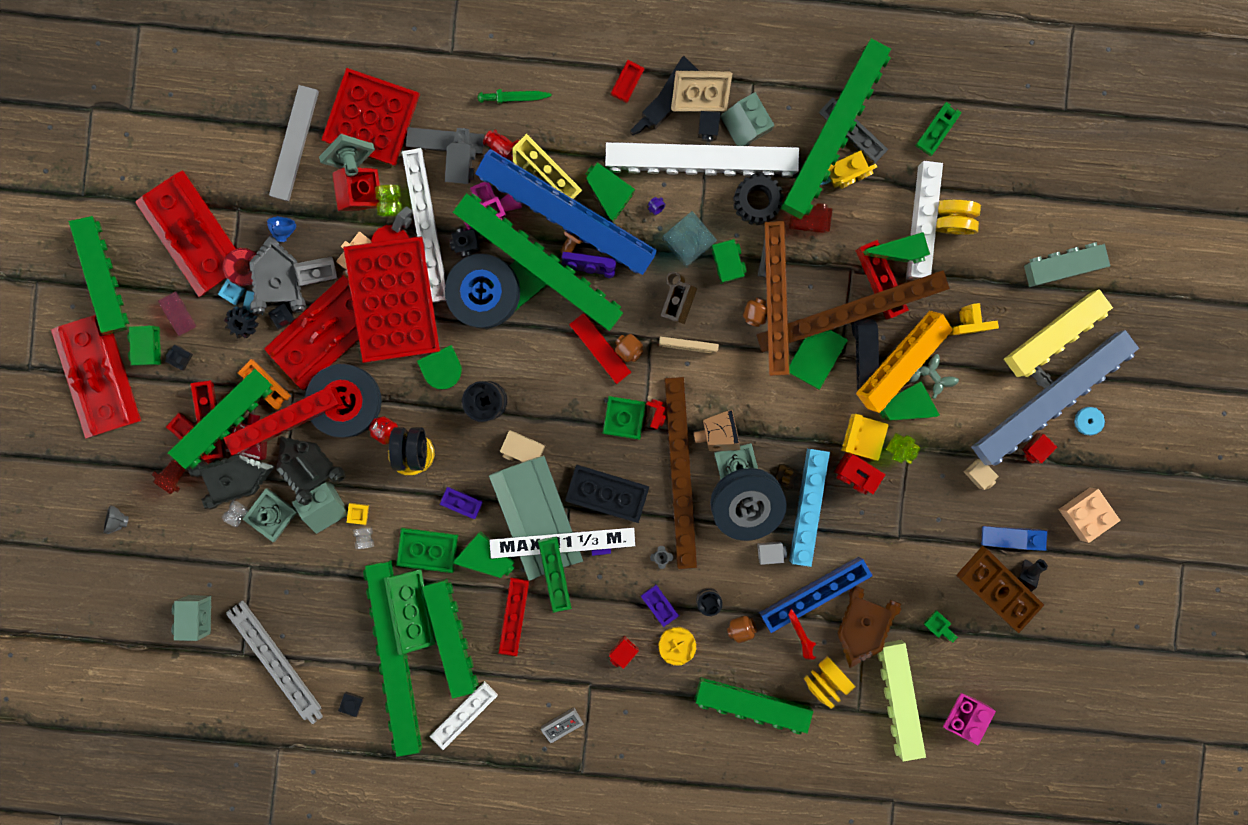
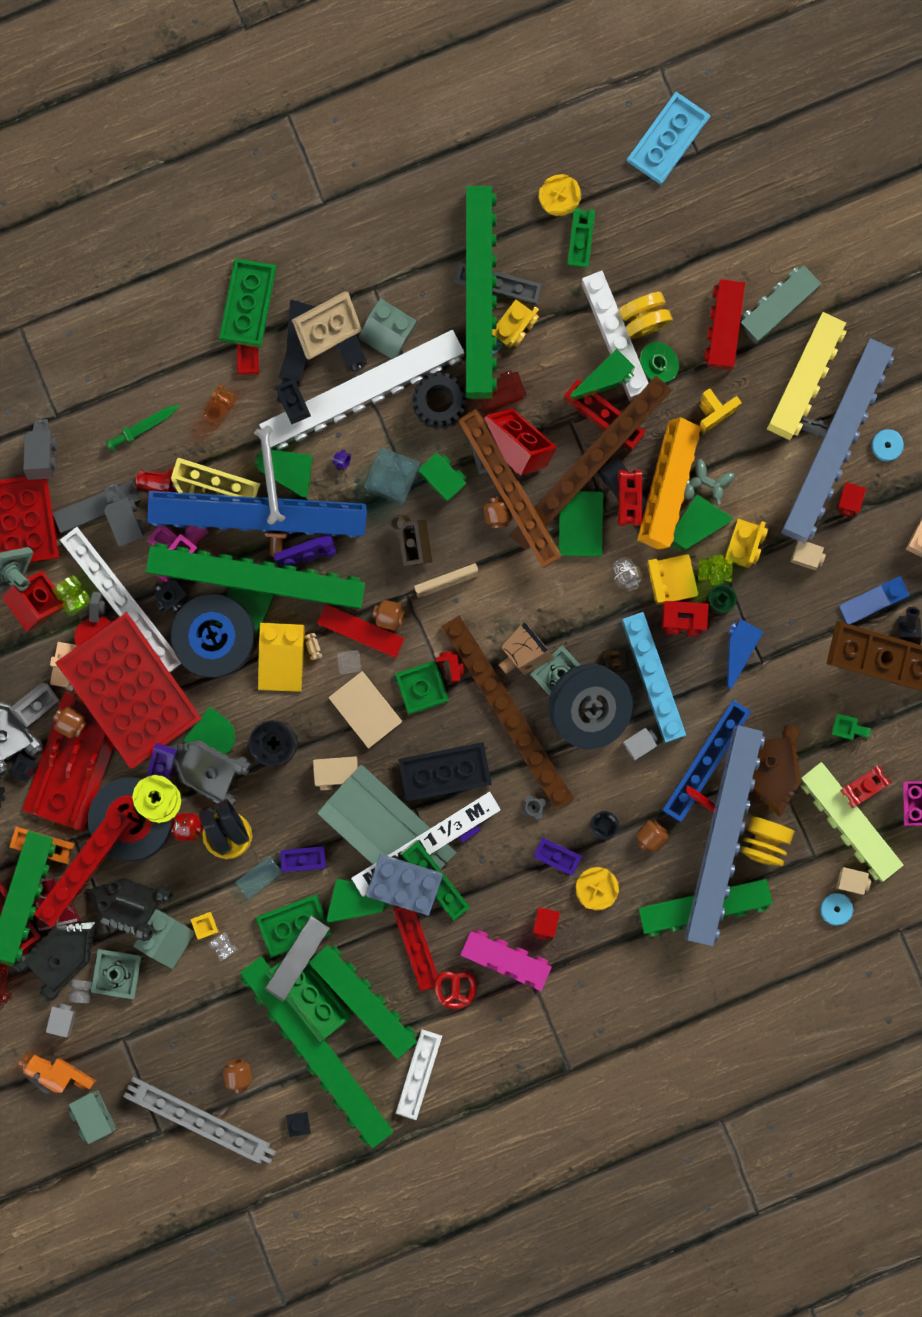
camera: 30 degrees left, 5 degrees down
(182, 569) = (55, 1076): none -> orange plate
(208, 528) = (61, 1020): none -> light grey brick
(322, 643) = (237, 1075): none -> dark orange head
(333, 299) = (69, 722): none -> dark orange head
(366, 398) = (146, 793): none -> neon yellow piece
(388, 371) = (161, 761): none -> dark purple plate
(413, 580) = (296, 958): none -> tile
(420, 498) = (259, 877): none -> clear light blue tile
(421, 72) = (39, 451): none -> dark grey hinge
(422, 394) = (207, 770): none -> dark grey shield
(526, 665) = (455, 989): none -> red piece
(527, 336) = (281, 657): none -> yellow slope
(528, 566) = (404, 884): none -> sand blue plate
(556, 340) = (313, 646): none -> tan piece
(562, 725) = (524, 1031): slope -> none
(571, 412) = (365, 709): none -> tan tile
(578, 368) = (349, 662): none -> clear tile
(578, 666) = (506, 960): none -> dark pink wedge
(586, 109) = (221, 401): none -> clear orange piece
(605, 153) = (264, 435): none -> light grey piece
(642, 138) = (293, 401): none -> black plate
(648, 41) = (248, 303): none -> green tile
(799, 662) = (724, 835): none -> sand blue brick
(804, 266) = (520, 442): none -> red slope
(832, 414) = (626, 573): none -> clear head
(859, 765) = (845, 912): none -> medium azure piece
(868, 357) = (630, 498): none -> red plate
(878, 746) = (853, 881): none -> tan brick
(889, 519) = (740, 647): none -> blue slope
(896, 474) = (721, 599): none -> dark green wheel
(927, 680) = (865, 786): none -> red plate
(939, 440) = (744, 543): none -> yellow bracket
(940, 85) = (560, 195): none -> yellow tile
(948, 258) = (664, 358): none -> green dish
(1015, 258) = (726, 324): none -> red brick
(1049, 85) = (668, 138): none -> medium azure tile

